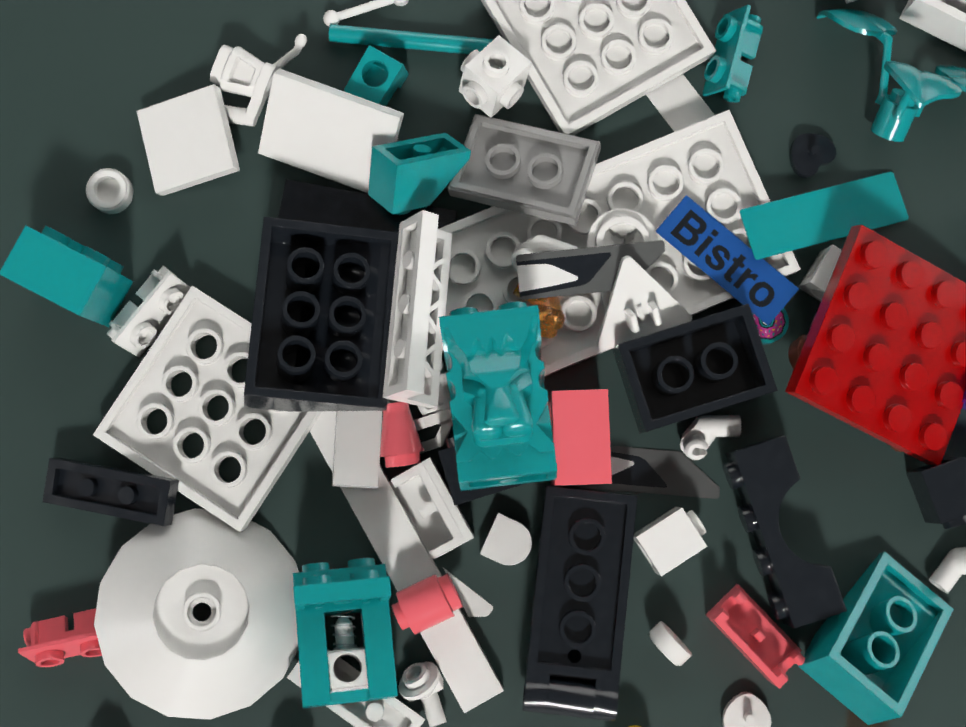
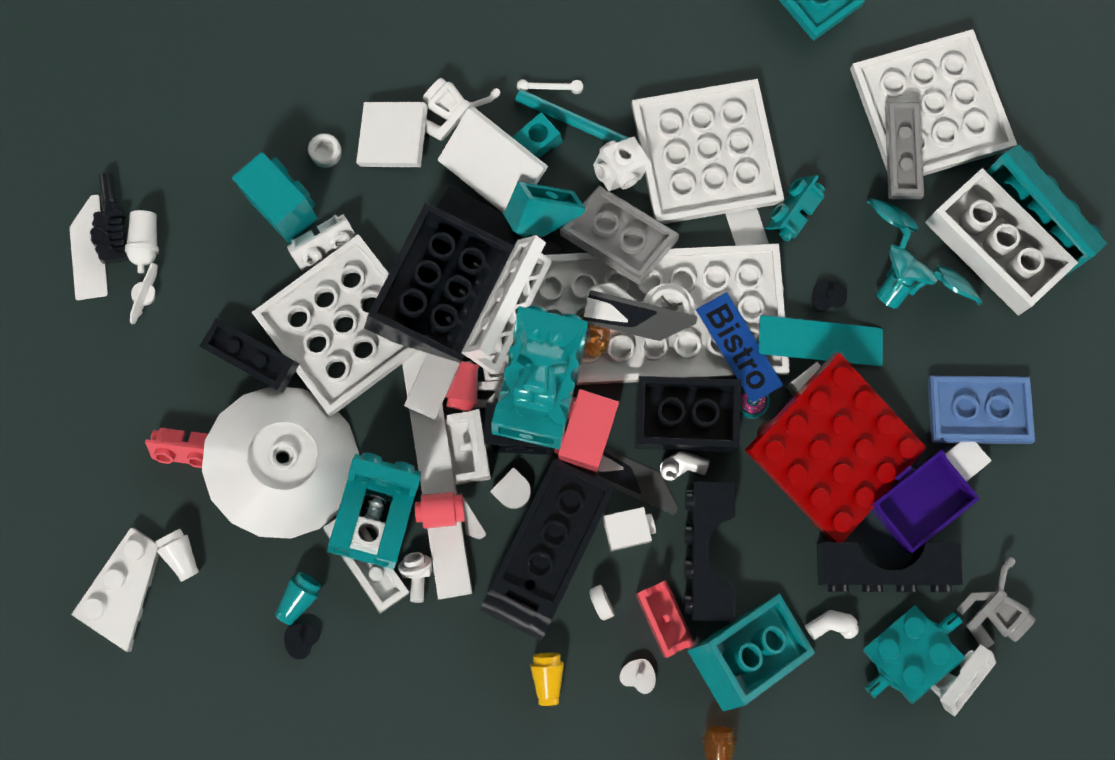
camera: 15 degrees right, 5 degrees down
(637, 307) = (663, 355): white piece -> none

